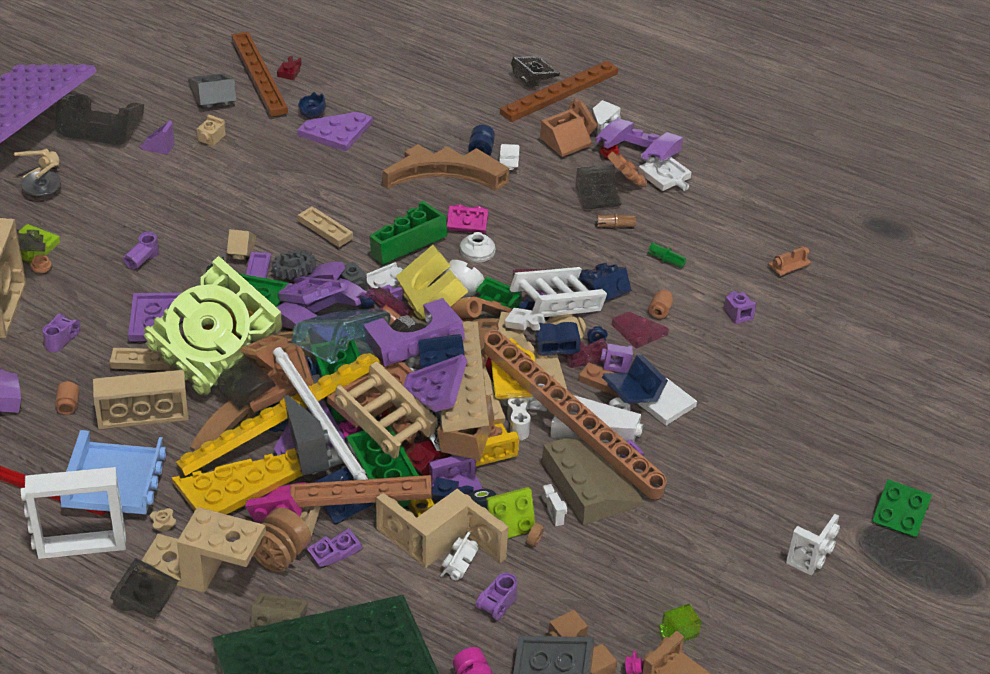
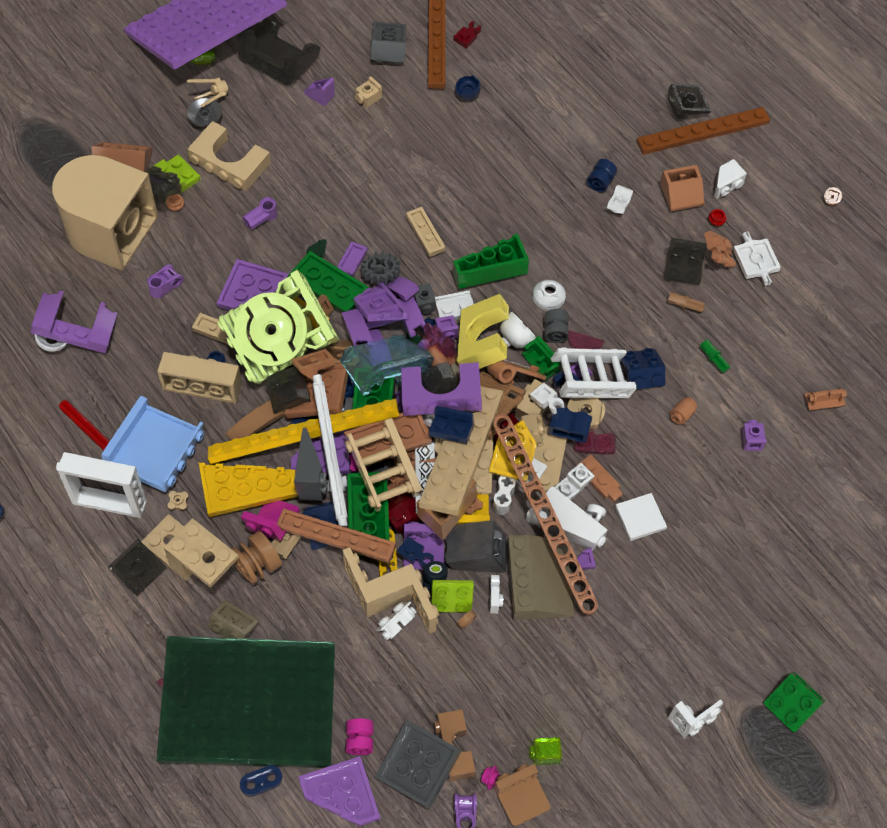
camera: 20 degrees right, 20 degrees up
(18, 140) = (204, 59): none -> clear neon green brick
(67, 397) = (146, 352): nougat brick -> none
(105, 223) = (239, 173): none -> tan arch
(240, 244) = (345, 230): tan slope -> none
(336, 549) = (299, 576): medium lavender slope -> none
(337, 130) = (480, 121): medium lavender plate -> none
(437, 384) = (432, 458): medium lavender plate -> none
(447, 163) = (560, 190): medium nougat arch -> none
(467, 219) = (552, 261): dark pink bracket -> none
(498, 595) = (409, 671): medium lavender piece -> none
(499, 266) = (556, 325): none -> dark grey wheel
(512, 466) = (477, 547): none -> flat silver slope
(580, 108) = (707, 169): nougat hinge -> none
(587, 385) = (575, 481): none -> white slope
(596, 330) = (611, 426): dark blue plate -> none
(621, 362) = (615, 460): medium lavender brick -> none
(622, 130) = (766, 229): medium lavender wedge -> none
(638, 330) = (652, 430): clear pink wing -> none
(640, 384) = (617, 496): dark blue bracket -> none
(708, 111) = (832, 196): none -> tile

